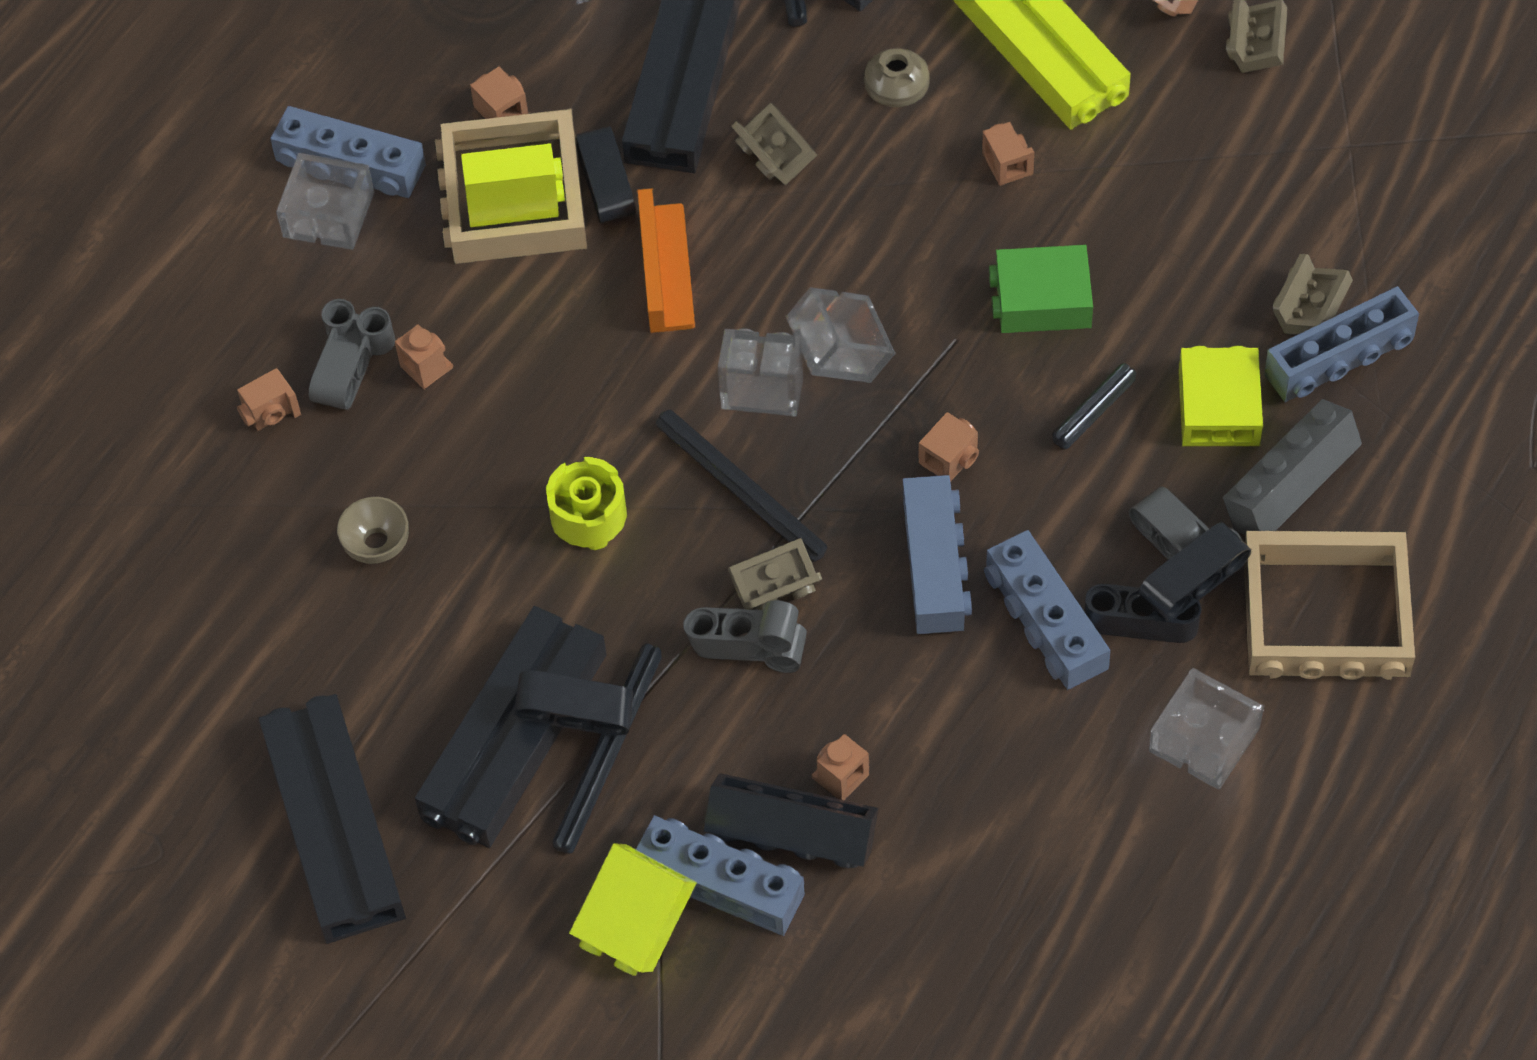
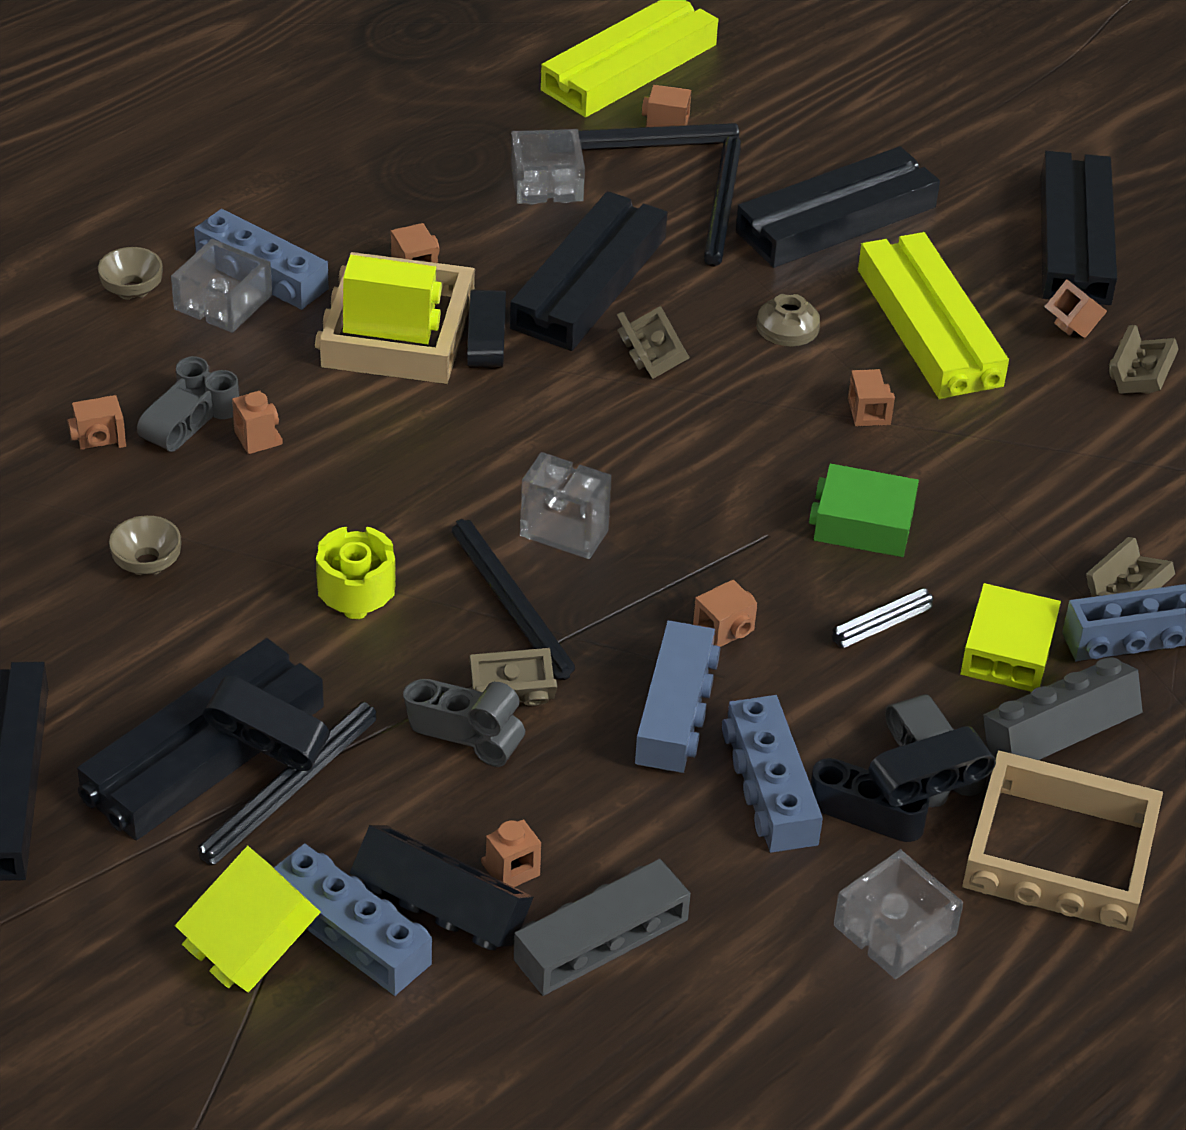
camera: 10 degrees right, 15 degrees down
(224, 196) = (128, 266): none -> dark tan piece
(666, 265) = (512, 409): orange panel -> none
(840, 335) = (657, 504): clear piece -> none
(945, 816) = (601, 926): none -> dark grey brick

